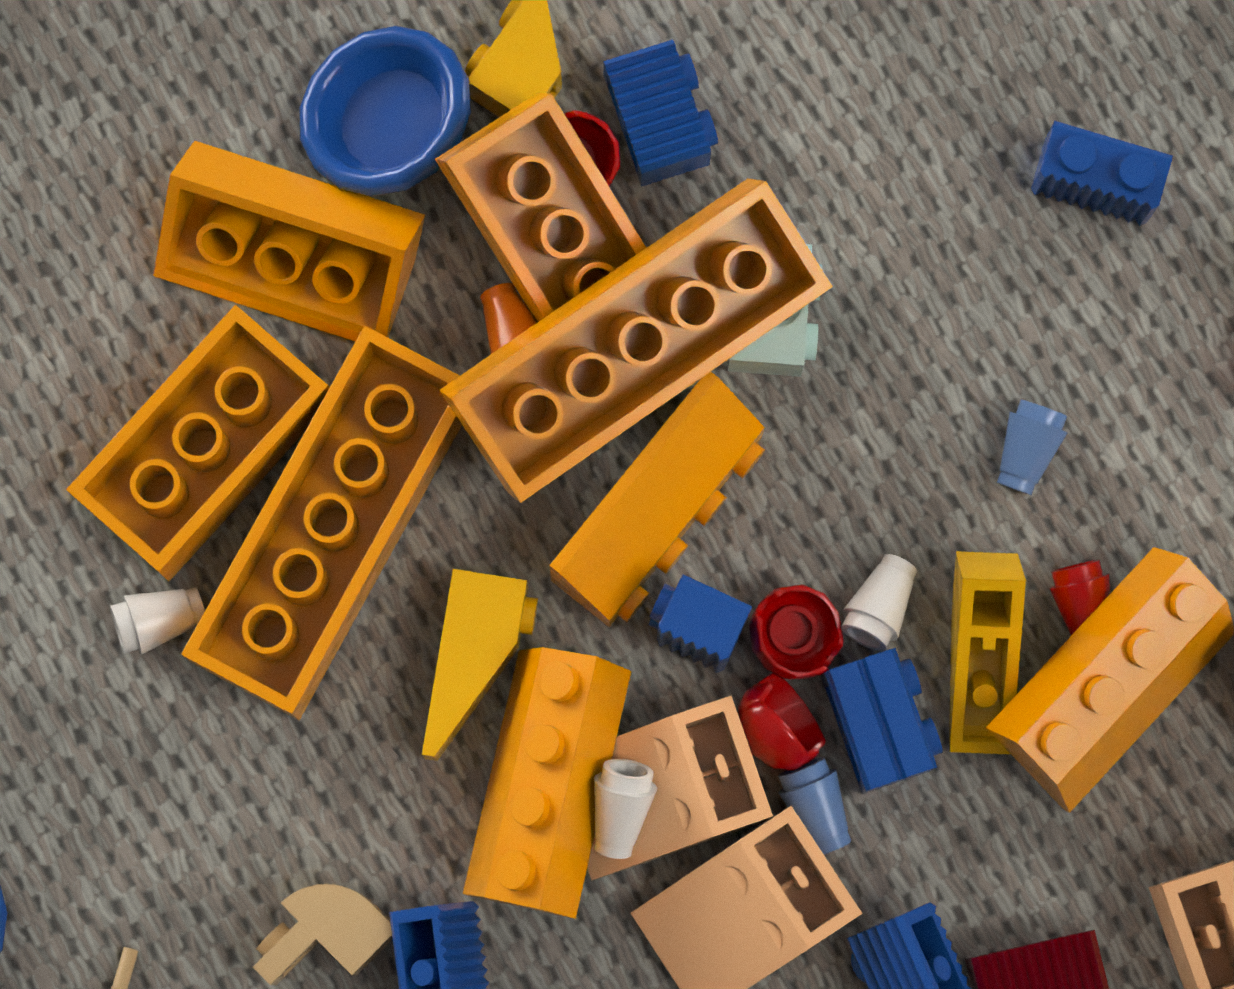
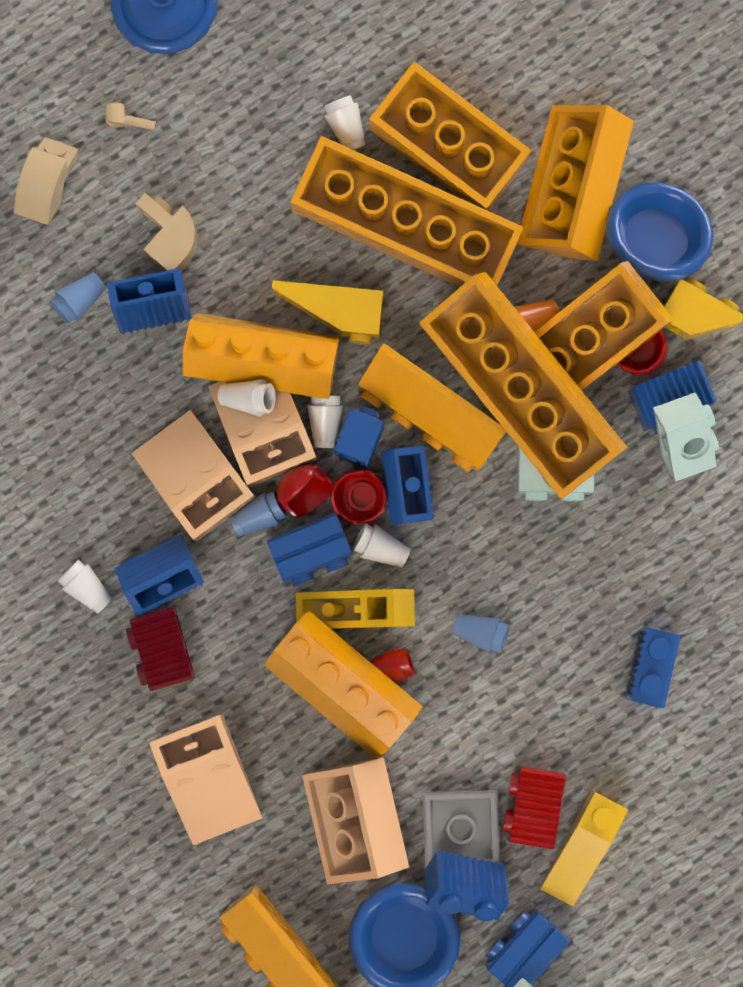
camera: 90 degrees right, 5 degrees up
(664, 683) = (325, 420): none -> white cone
(728, 89) = (686, 436): none -> light aqua brick
(784, 548) = (407, 485): none -> blue brick

